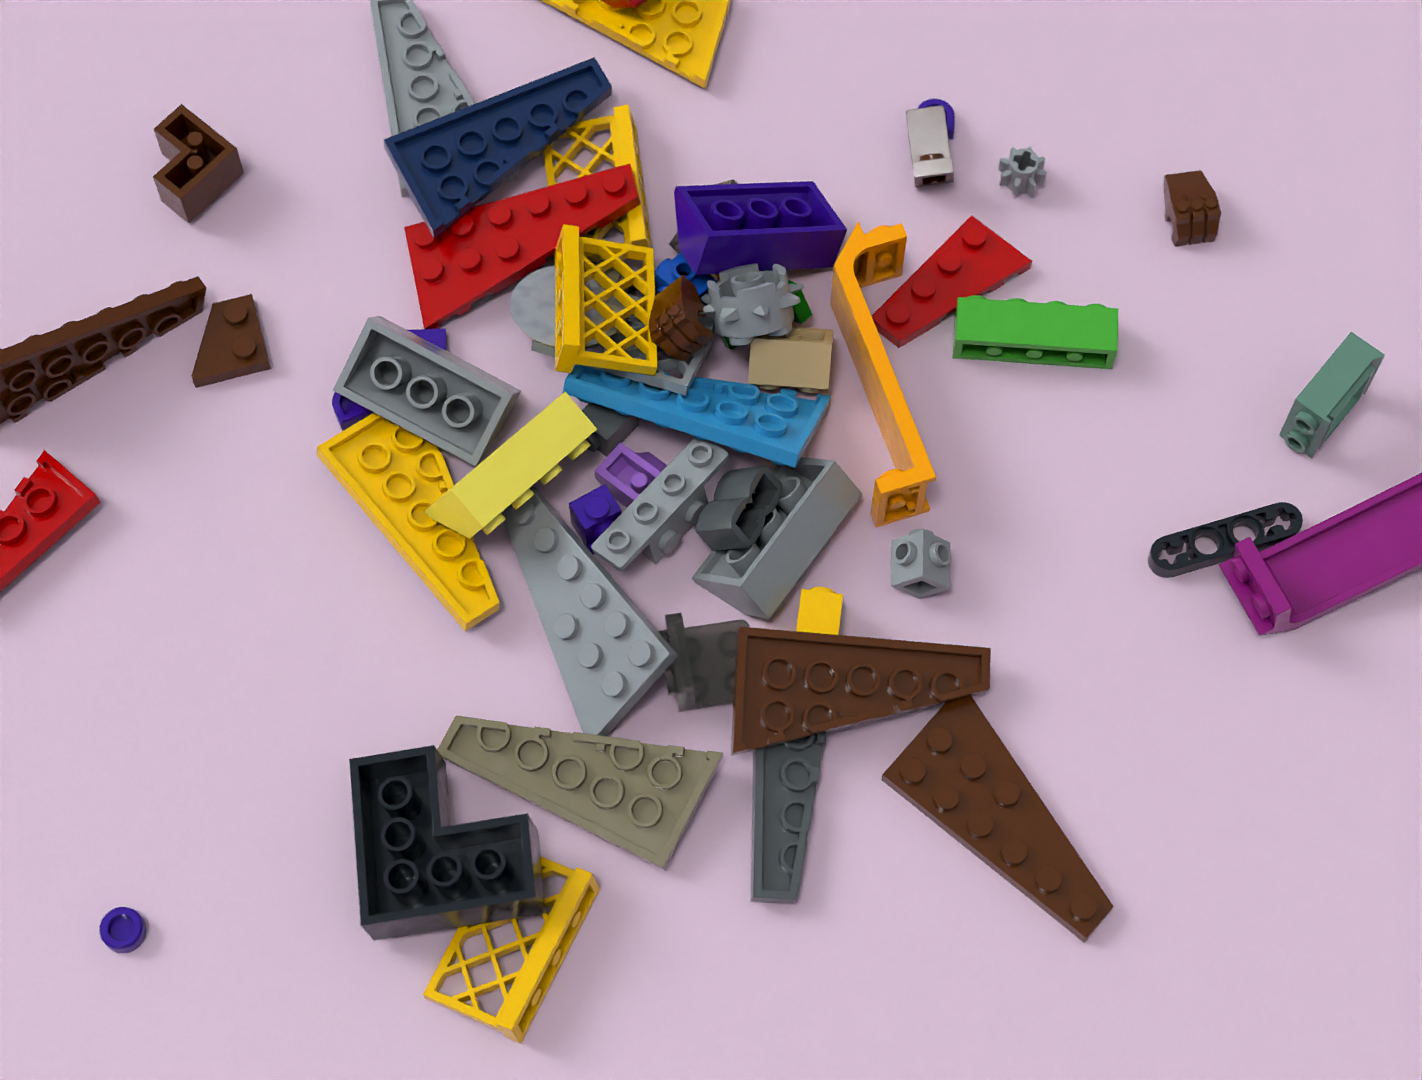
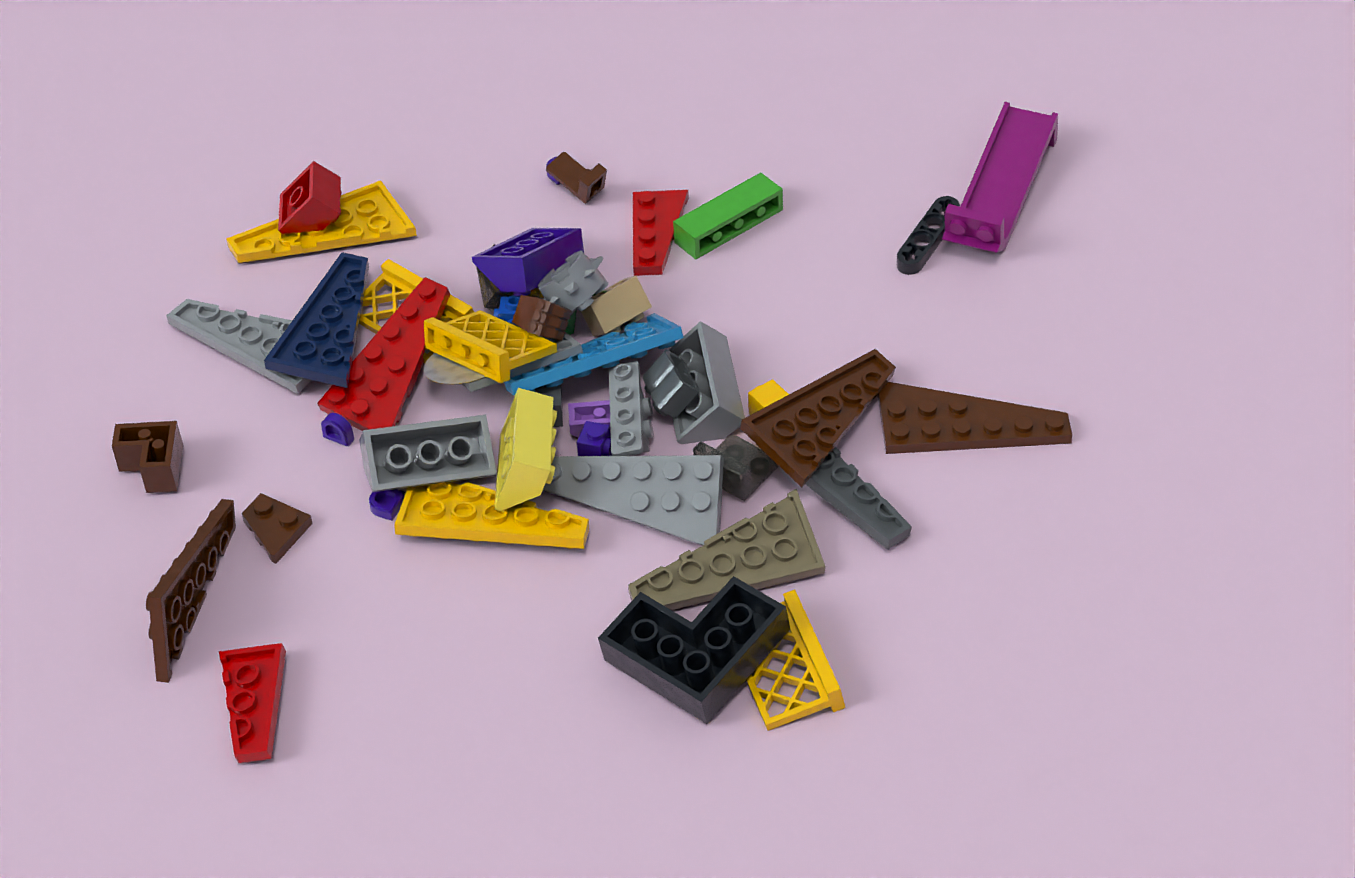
camera: 40 degrees left, 20 degrees down
(122, 930) = (553, 835): dark purple tile -> none
(389, 279) = (337, 429): none -> dark purple tile
(864, 262) = (677, 279): light orange panel -> none
(920, 563) = (794, 343): light grey brick -> none
(1022, 171) = (636, 156): light grey gear -> none
(1191, 208) = (743, 114): reddish brown hand -> none
(1331, 395) = (911, 140): sand green window -> none

